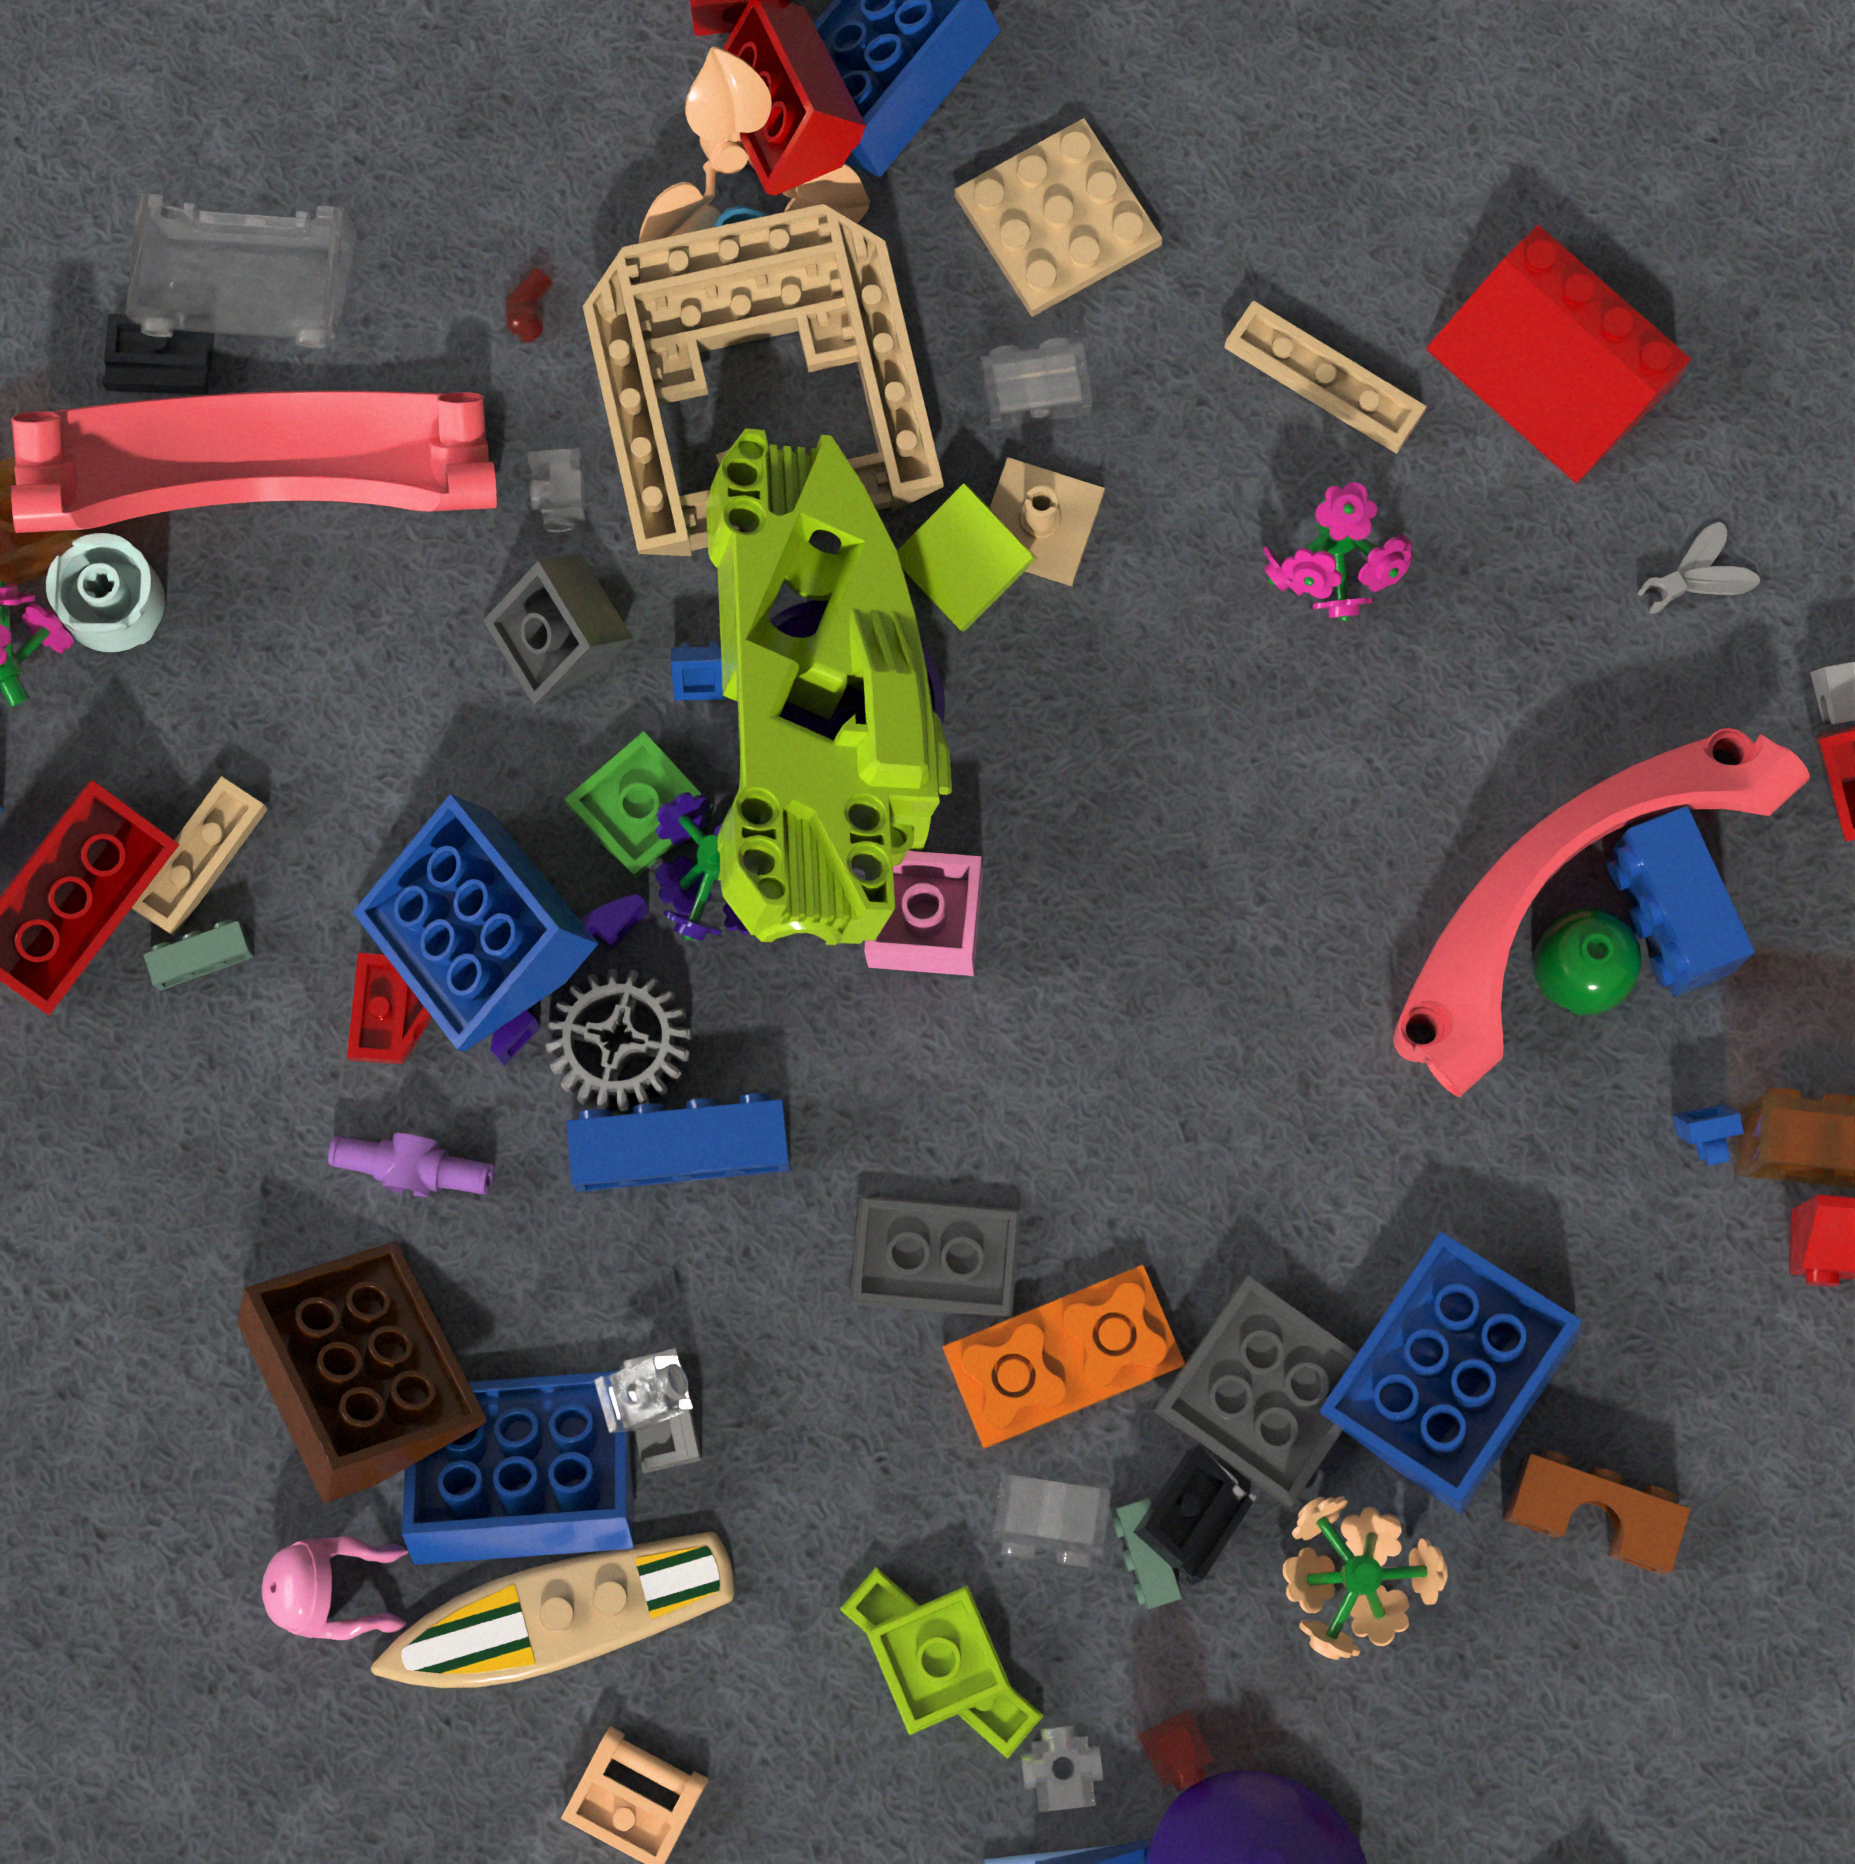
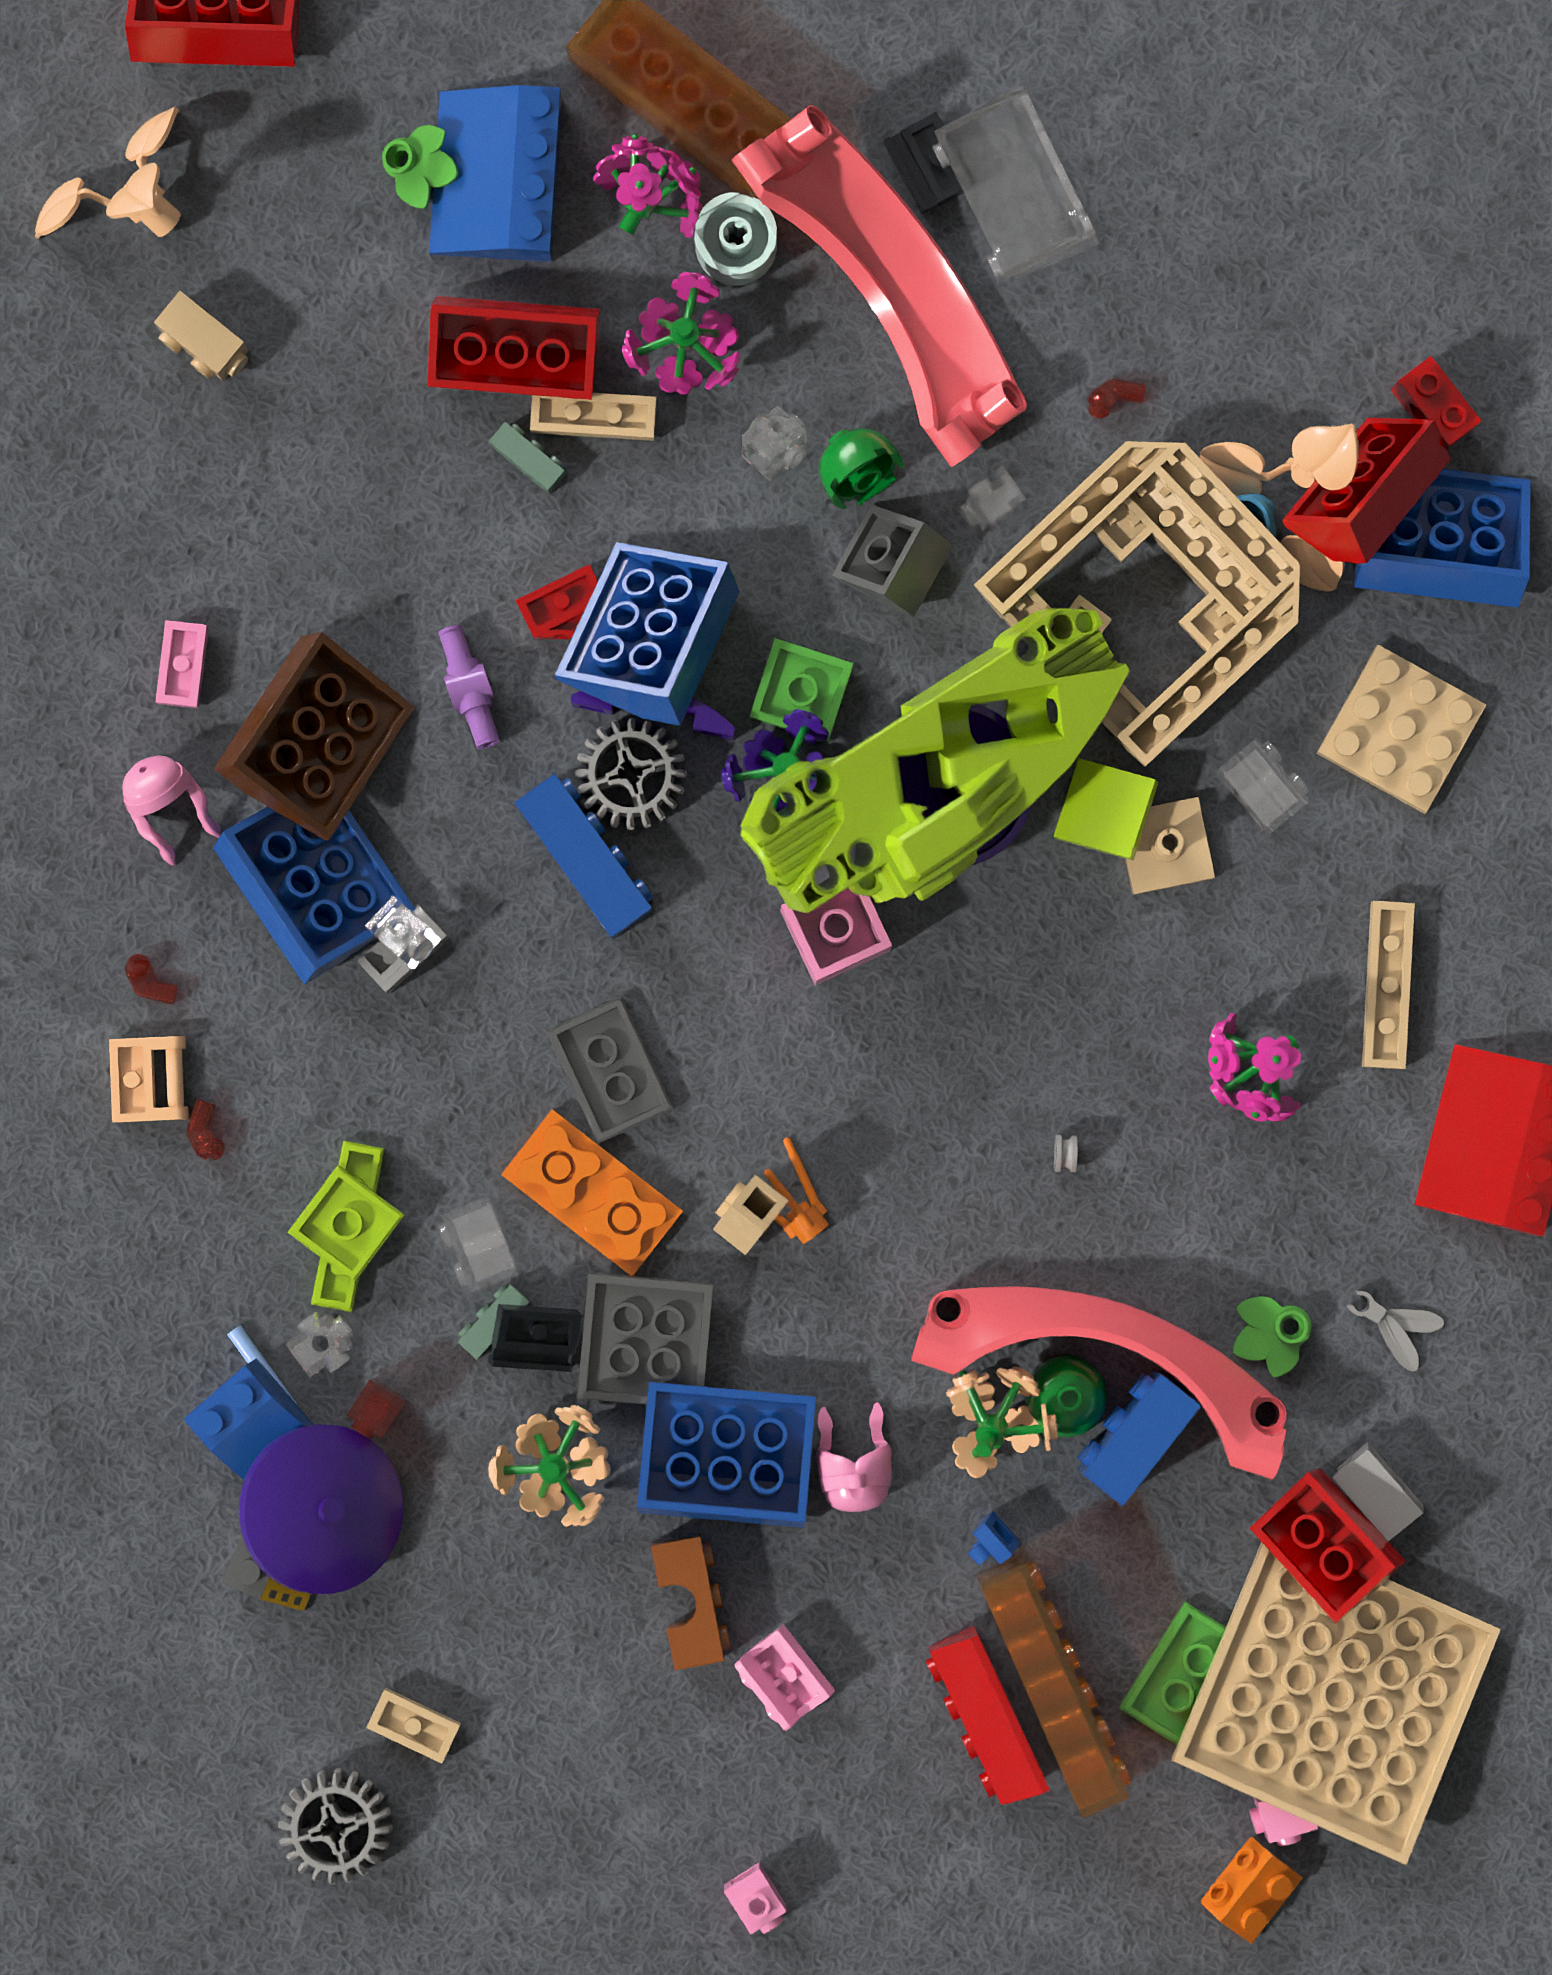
camera: 60 degrees right, 10 degrees up
(183, 1478) = (182, 664): none -> bright pink plate
(184, 682) = (665, 327): none -> dark pink plant
(352, 677) = (774, 443): none -> clear brick
(430, 593) = (858, 465): none -> green cylinder
(520, 1737) = (145, 983): none -> clear red arm
(561, 1614) = (238, 962): tan piece -> none
(697, 672) = (917, 673): blue tile -> none
(736, 1775) = (200, 1134): none -> clear red arm
(1190, 1186) = (748, 1213): none -> tan brick
(1227, 1132) = (804, 1219): none -> orange plant
(1316, 809) = (1065, 1153): none -> light grey bush
(1554, 1254) = (858, 1484): none -> bright pink hair
(1592, 1040) = (973, 1397): none -> light nougat plant
(1637, 713) = (1265, 1336): none -> bright green plate
(1742, 1453) = (783, 1677): none -> bright pink bracket

